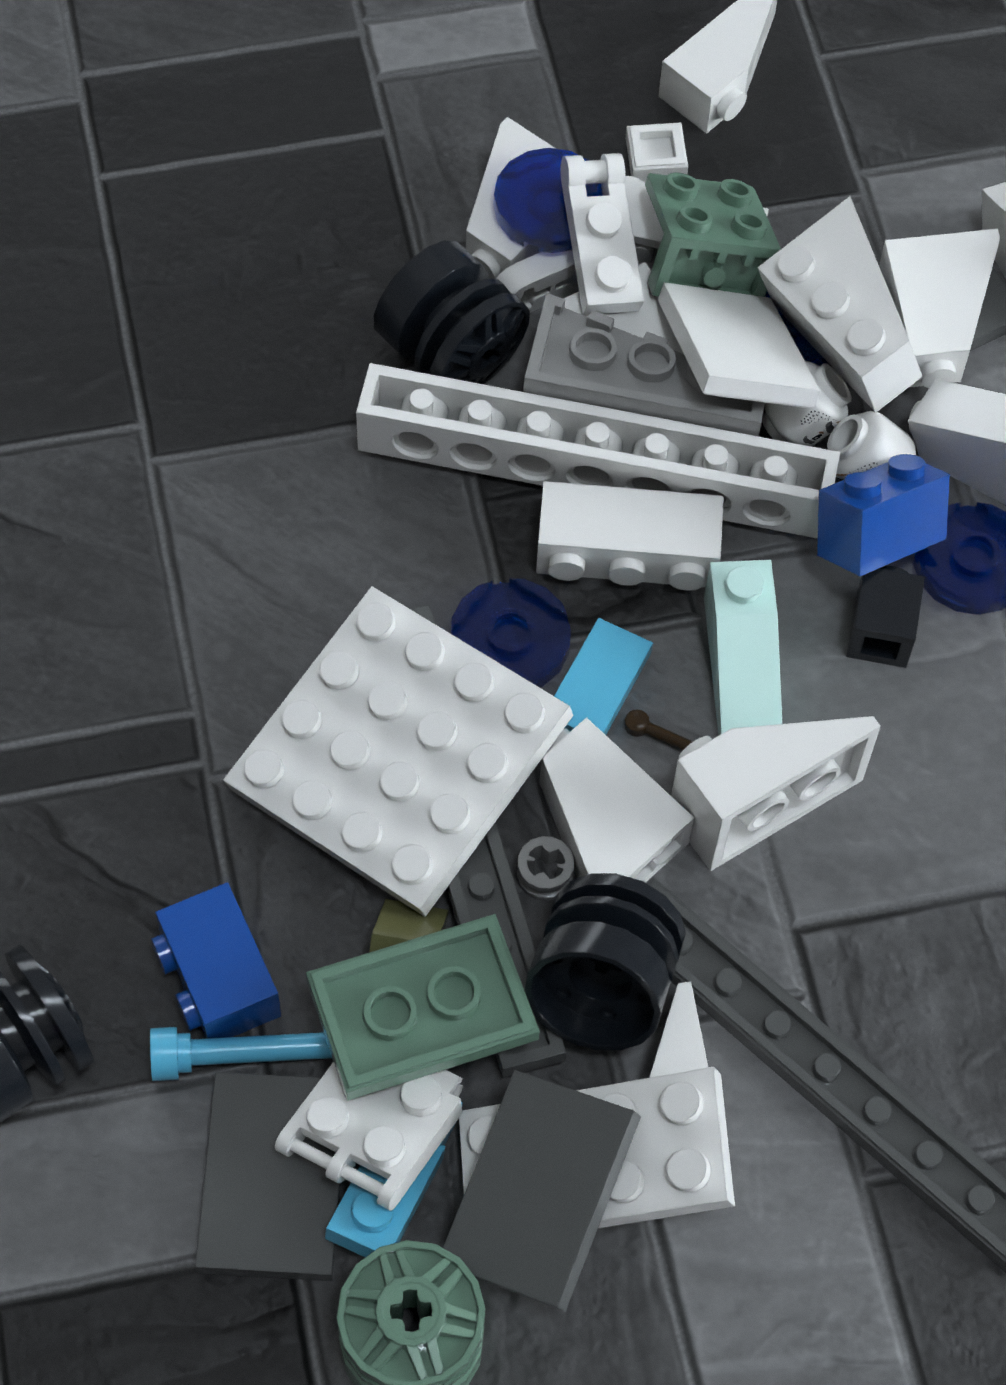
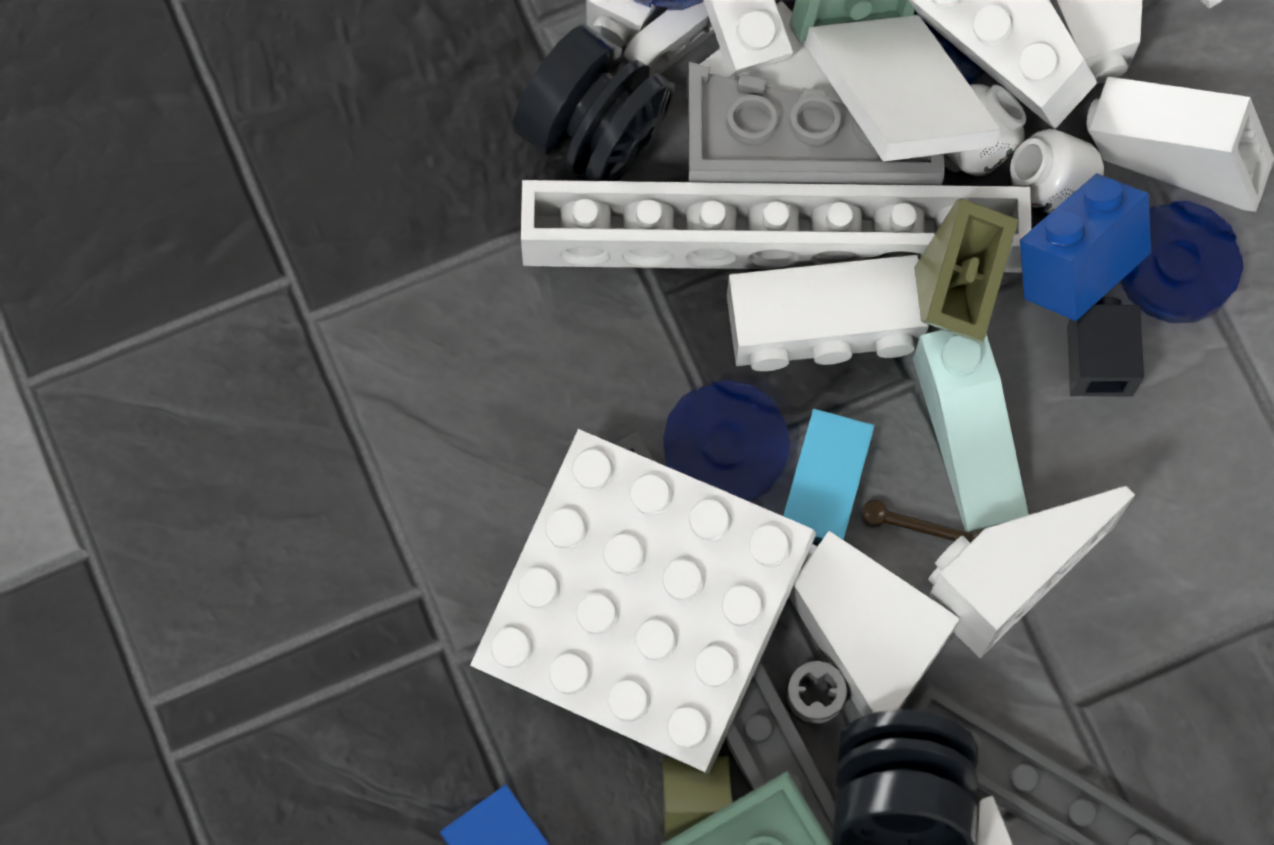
camera: 10 degrees left, 10 degrees up
(763, 505) = (964, 269): none -> olive slope

